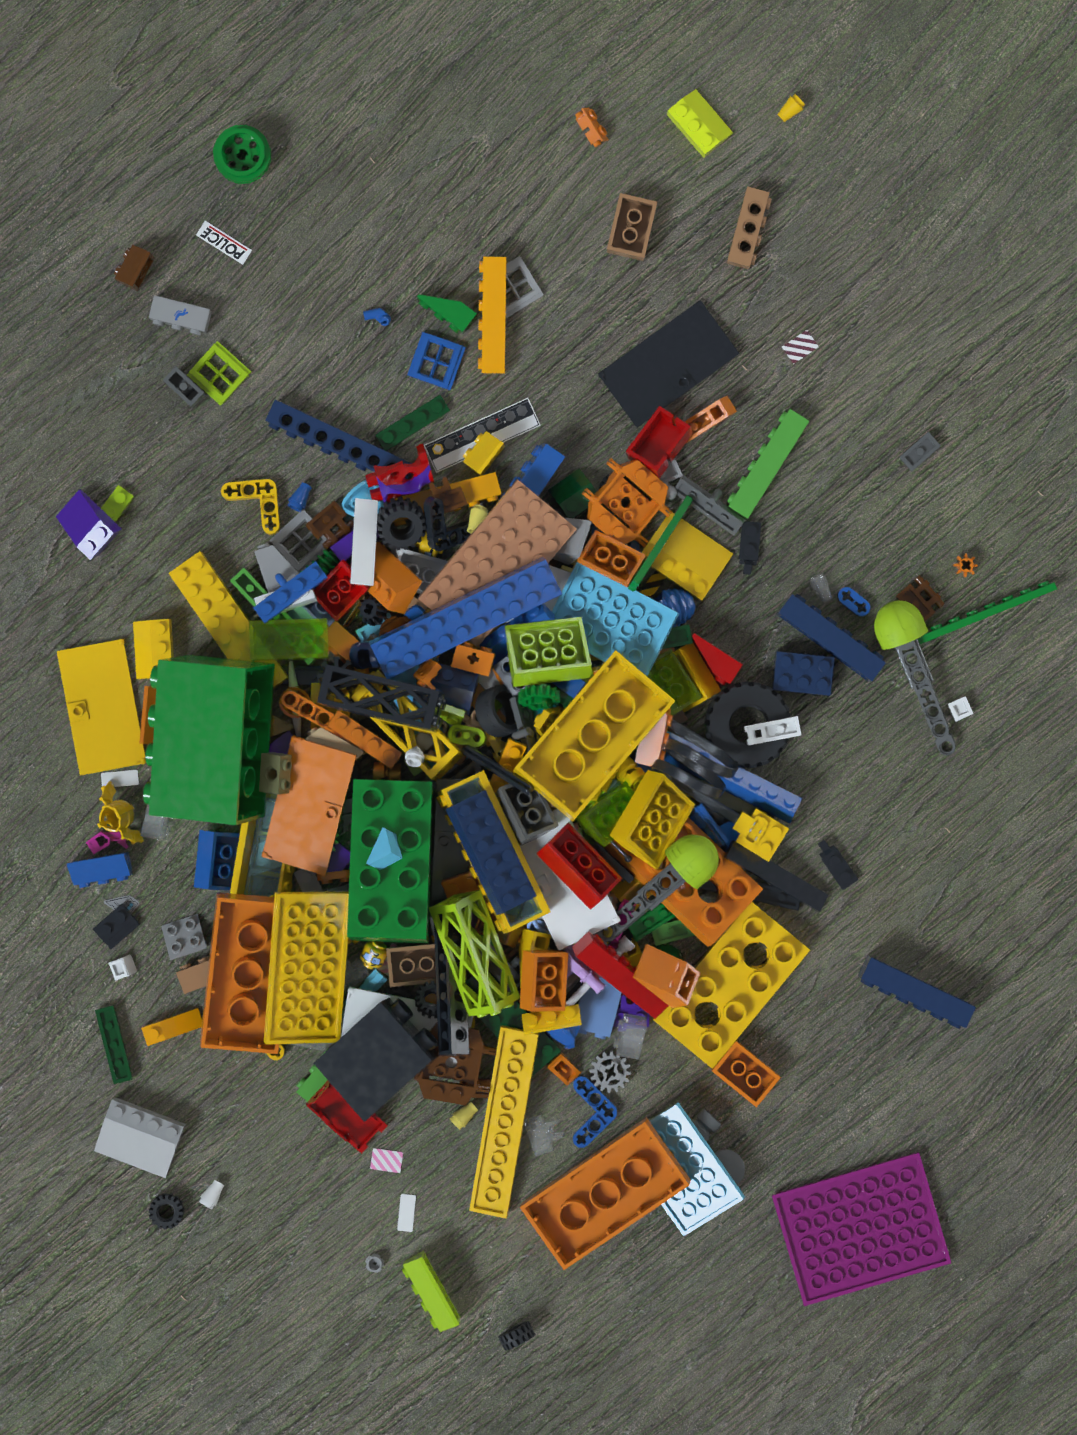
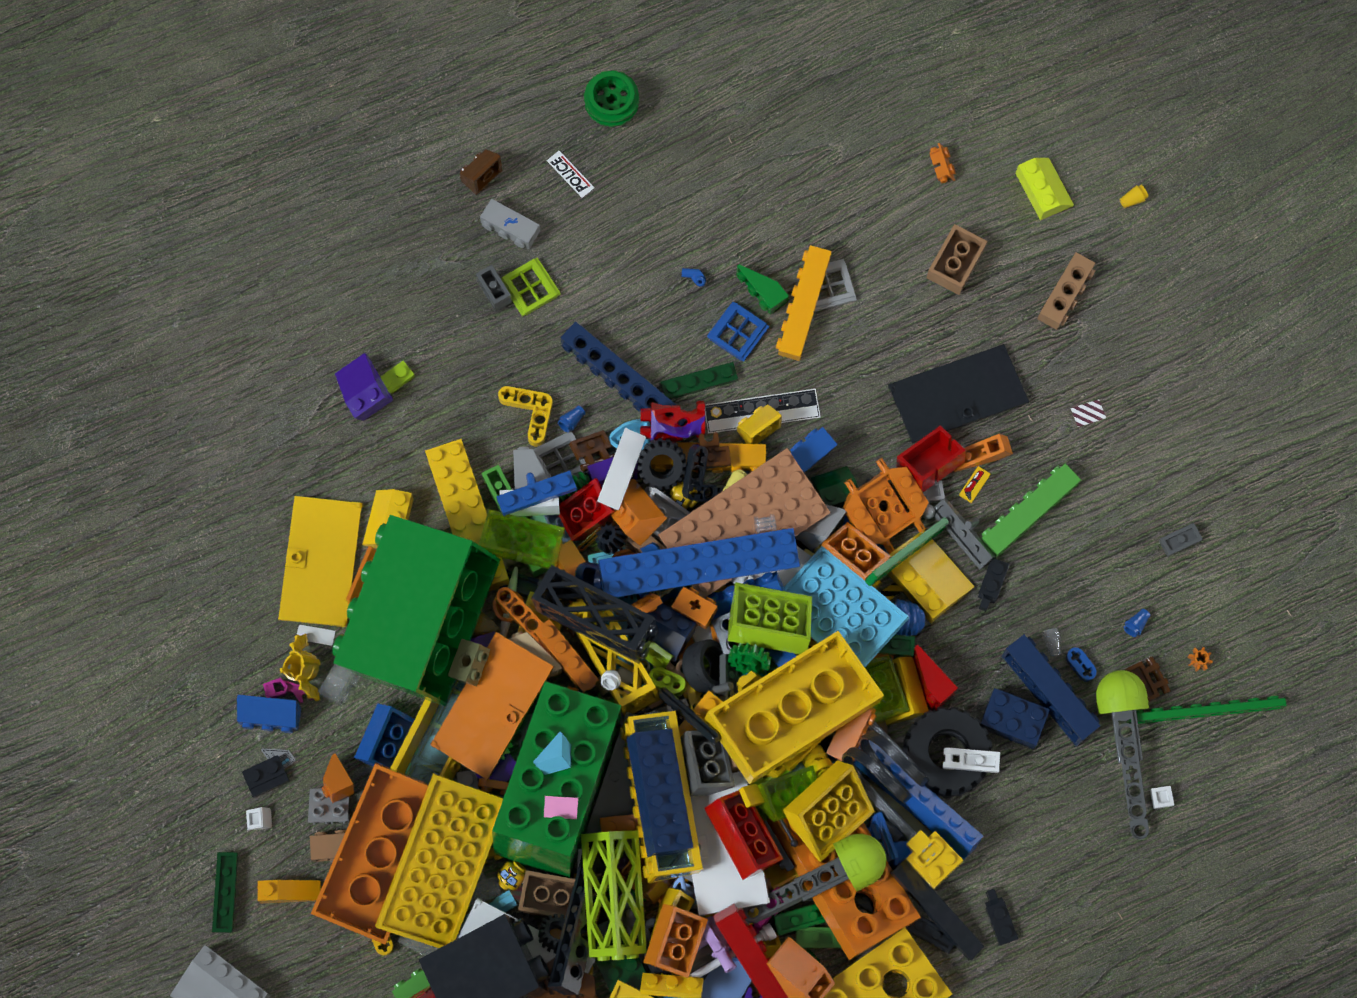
camera: 15 degrees right, 15 degrees down
(184, 914) = (336, 781): none -> orange slope
(404, 897) = (560, 806): none -> bright pink sticker
(517, 561) = (765, 523): none -> clear bush
(577, 828) = (751, 795): none -> yellow tile
(707, 451) = (974, 484): none -> yellow sticker
(896, 548) = (1136, 623): none -> blue cone

